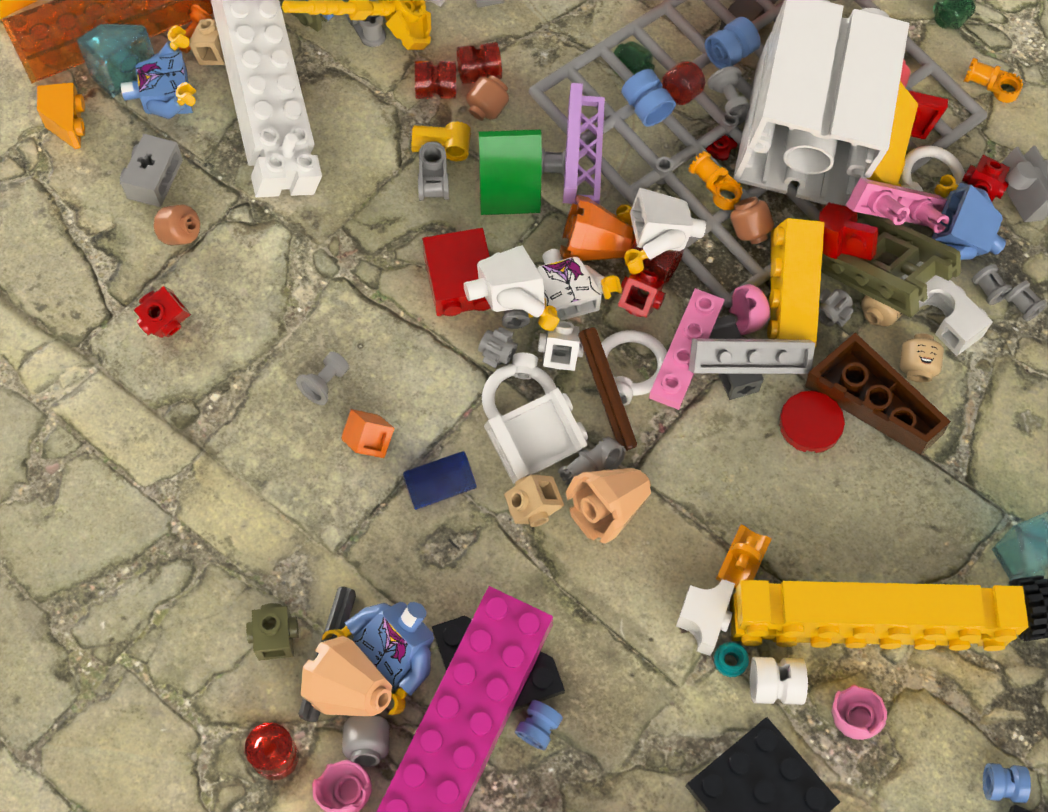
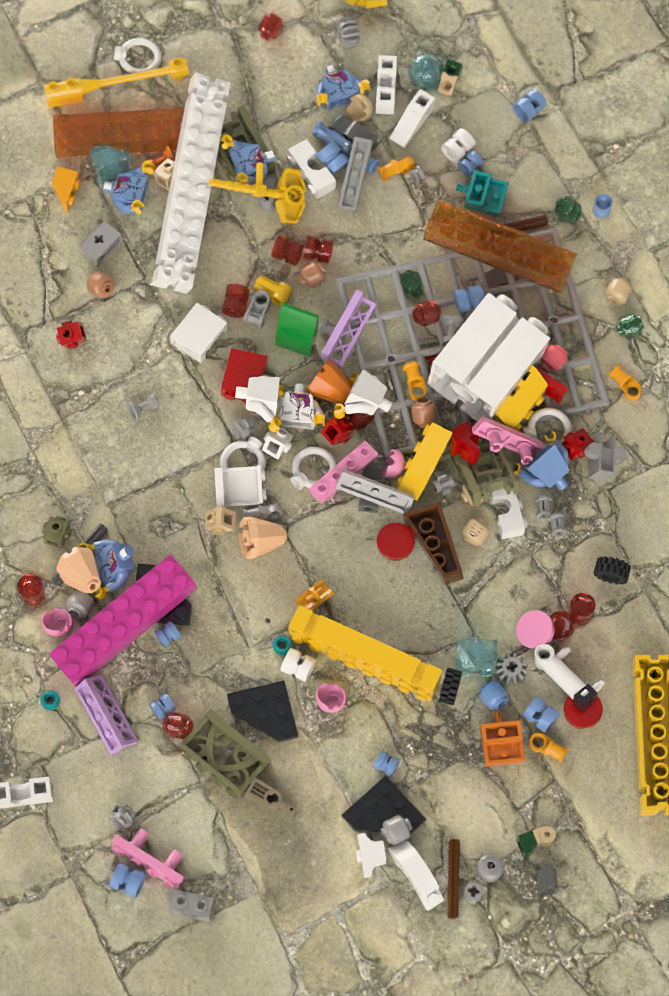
camera: 25 degrees right, 5 degrees up
(359, 237) = (198, 331): none -> white panel
(367, 433) = (151, 447): orange panel -> none
(394, 172) = (235, 301): none -> clear red wheel
(439, 480) = (177, 489): clear blue slope -> none
(607, 388) = (289, 477): reddish brown axle -> none
(648, 97) = (400, 314): medium blue wheel -> none
(706, 614) = (279, 617): white brick -> none

